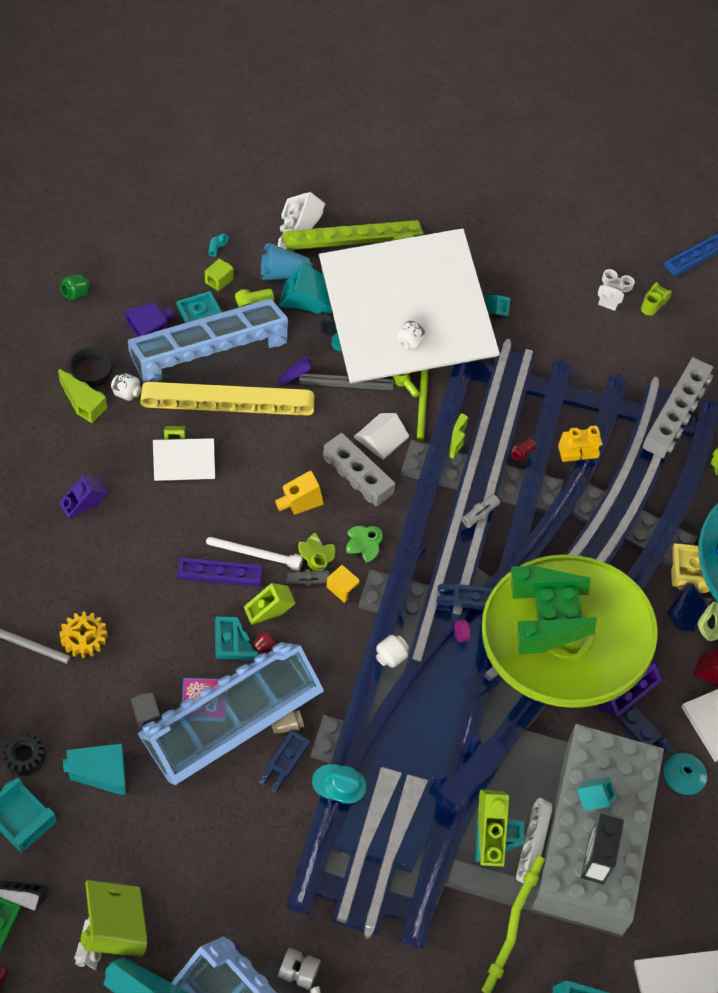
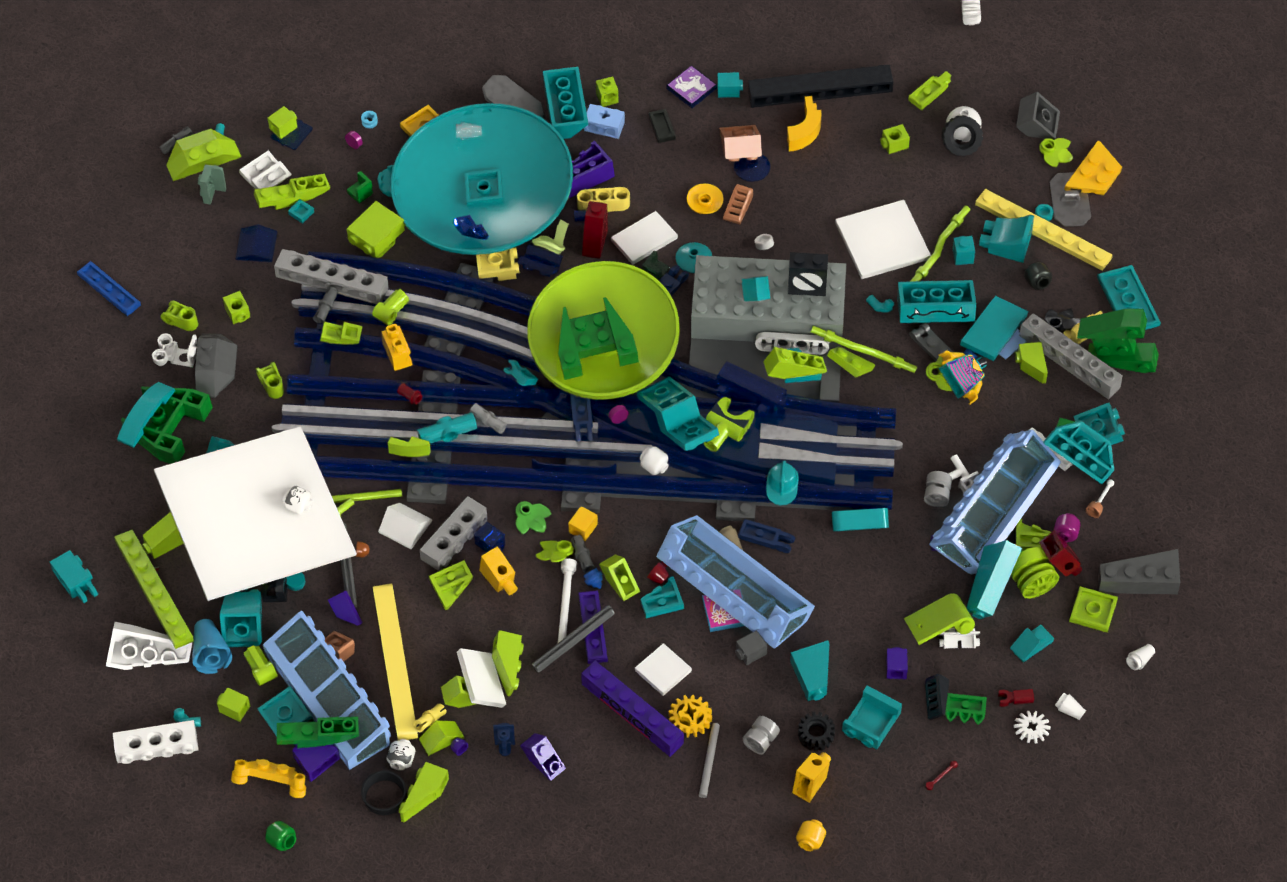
camera: 95 degrees left, 0 degrees up
(38, 698) = (760, 735): none -> light grey wheel
(79, 859) = (896, 663): none -> dark purple brick
(107, 462) = (504, 737): none -> dark blue hinge
(108, 582) = (632, 708): none -> dark purple brick
(120, 432) = (459, 746): none -> dark purple hinge
(136, 424) = (440, 736): none -> lime slope
(141, 292) = (270, 771): none -> yellow plate
(150, 624) = (663, 669): none -> white tile
(154, 411) = (429, 717): none -> light yellow pin
(159, 314) = (319, 733): none -> green slope
(199, 219) = (147, 736): none -> white brick
(203, 485) = (506, 659): none -> lime slope
(207, 548) = (573, 638): none -> dark grey axle
(254, 355) = (342, 645): none -> nougat slope
(276, 578) = (594, 578): none -> blue plate
(278, 866) = (860, 519): none -> teal beam
(302, 457) = (451, 582): none -> lime wing
(344, 498) = (489, 537): none -> clear blue brick
(360, 394) = (362, 549): none -> dark orange hinge
(382, 188) = (73, 576): none -> teal hinge
(426, 736) = (727, 424): none -> lime connector
(444, 682) = (678, 413): none -> teal bracket
(473, 472) = (448, 428): none -> teal piece
(496, 908) = (850, 362): none -> lime wing
(529, 549) = (522, 375): none -> teal plate
(536, 263) = (159, 429): none -> green wedge
(542, 243) = (142, 412): none -> teal slope
(572, 354) = (271, 380): none -> lime piece
(587, 970) = (886, 306): none -> teal arm
(598, 314) = (214, 363): none -> dark grey wedge
(608, 406) = (339, 334): none -> lime slope
(630, 446) = (387, 311): none -> lime piece
(644, 398) = (325, 305): none -> dark grey pin
(659, 341) = (236, 307): none -> lime brick
(672, 725) = (655, 267): none -> clear green panel
(698, 855) = (764, 242): none -> white tile

